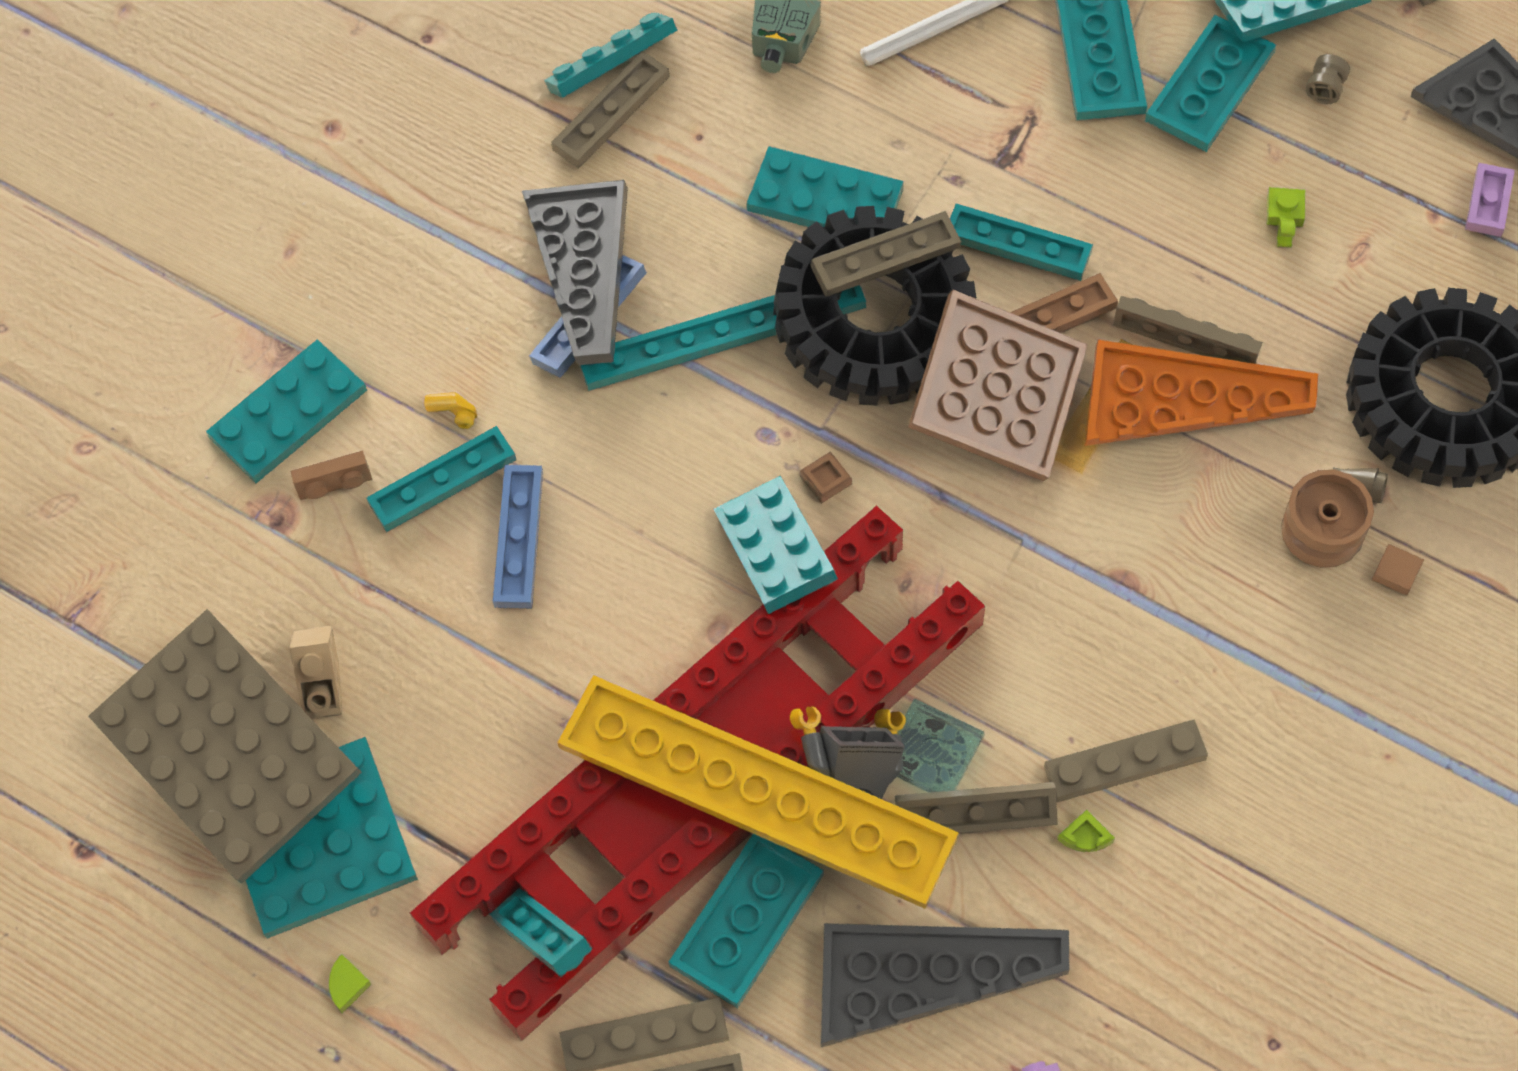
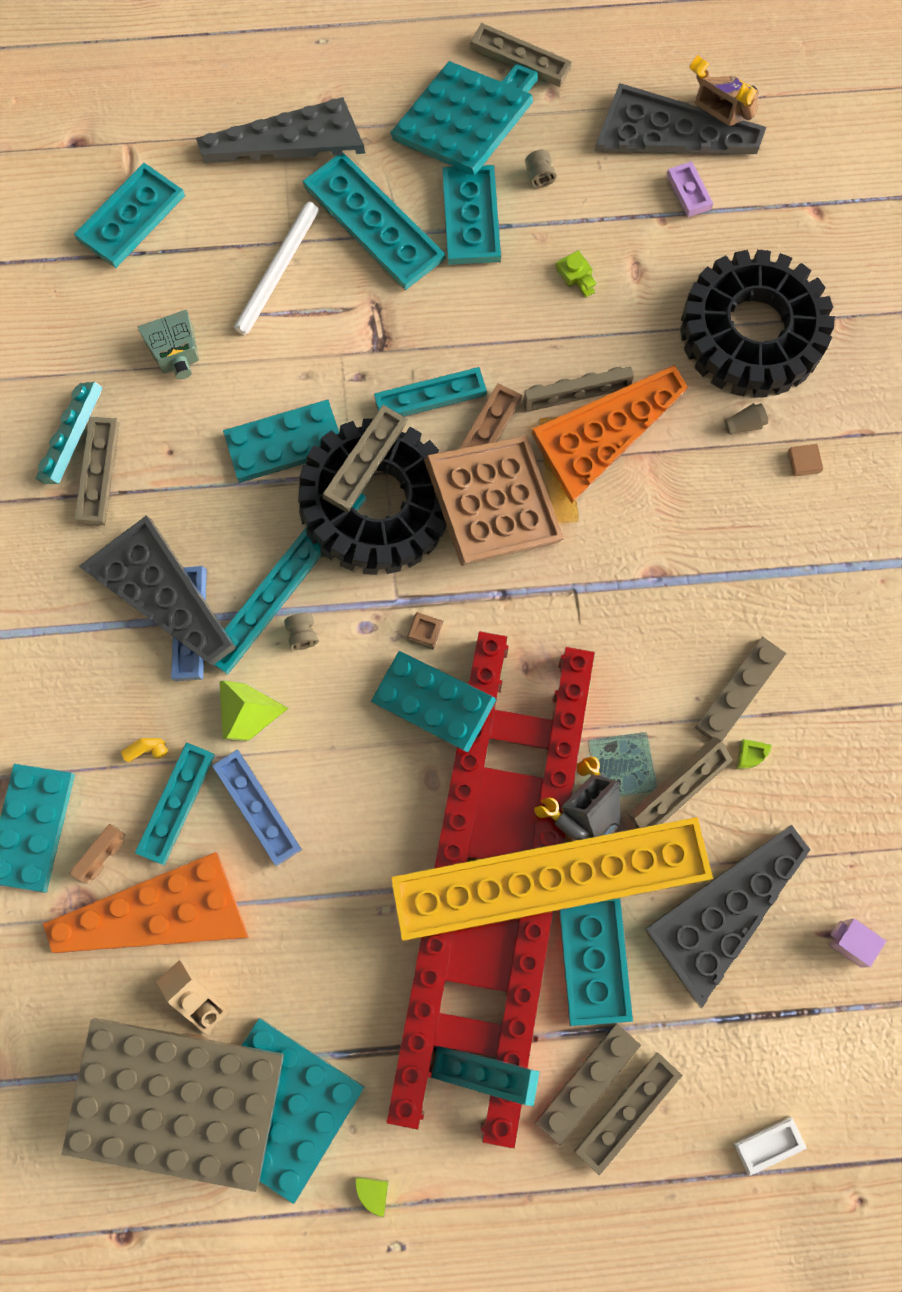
camera: 40 degrees left, 10 degrees up
(354, 574) = (171, 908): none -> orange wing
(579, 436) = (246, 710): none -> lime slope
(695, 392) = (301, 633): none -> dark tan wheel
(1327, 518) = (749, 455): medium nougat wheel -> none

